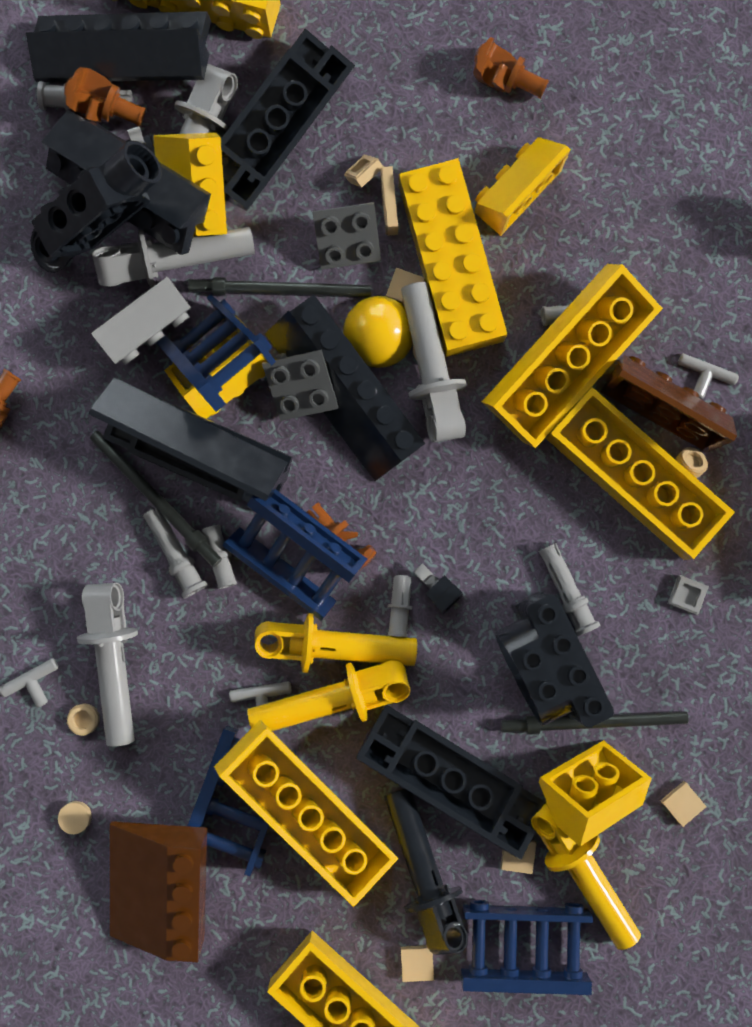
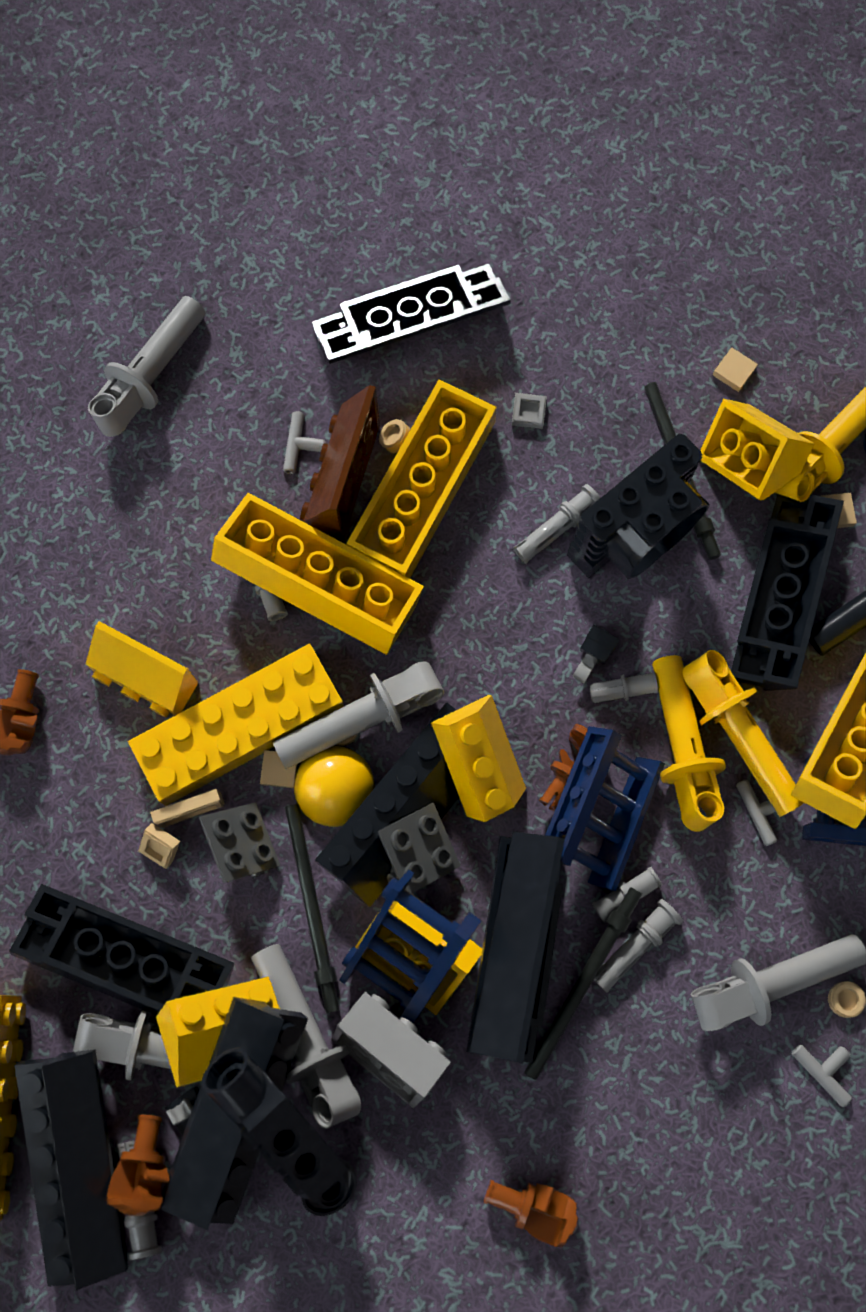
camera: 105 degrees left, 10 degrees down
(364, 459) = (480, 759): none -> yellow slope

